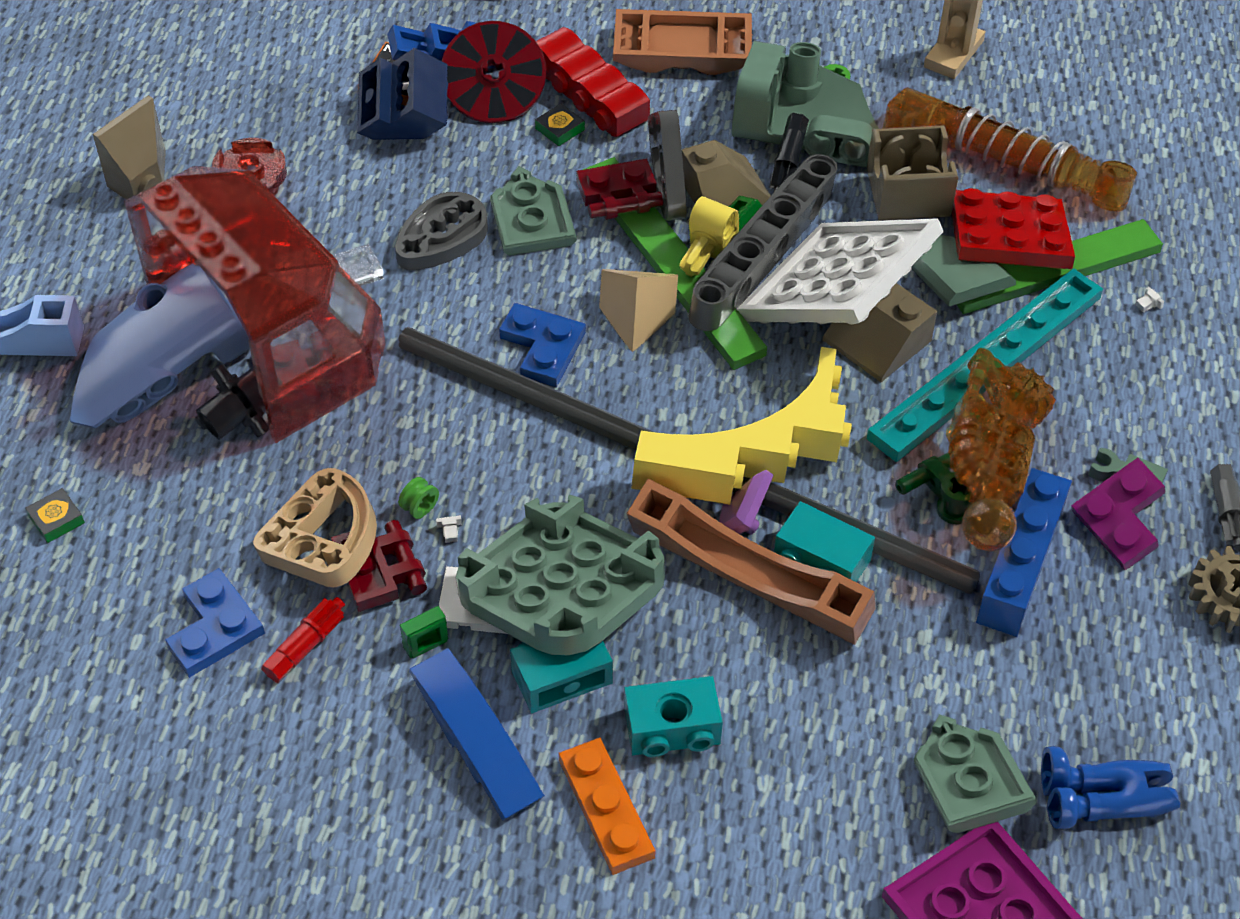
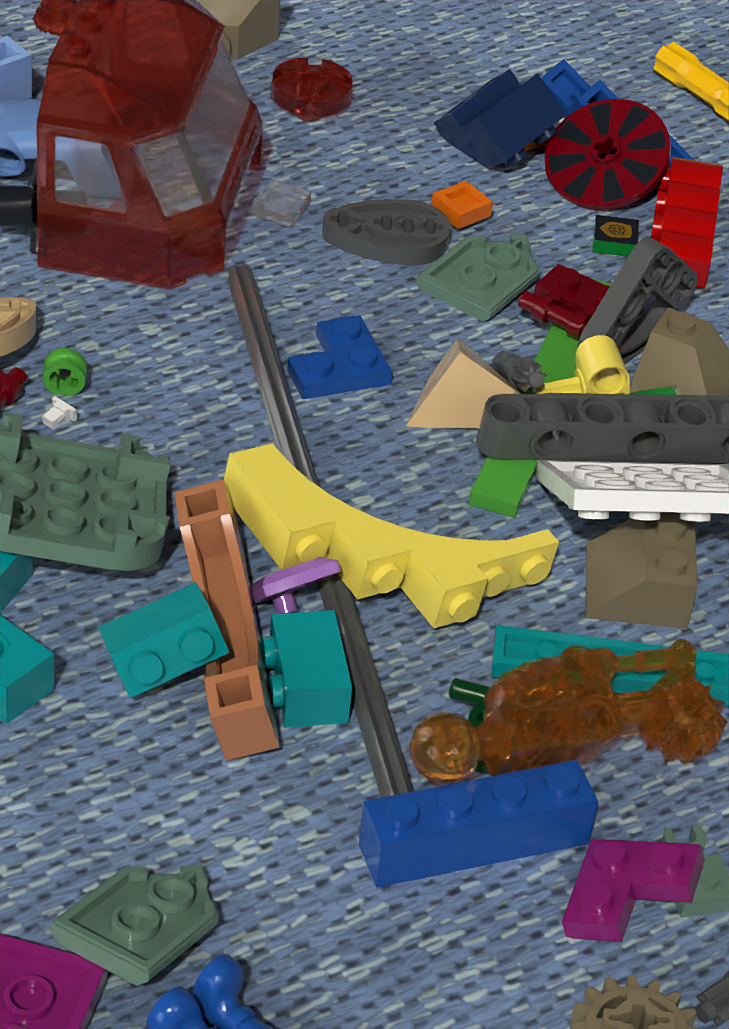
camera: 45 degrees right, 10 degrees down
(456, 175) = (462, 204): none -> orange plate
(665, 260) = (519, 371): none -> dark grey piece
(749, 608) = (163, 640): none -> teal brick

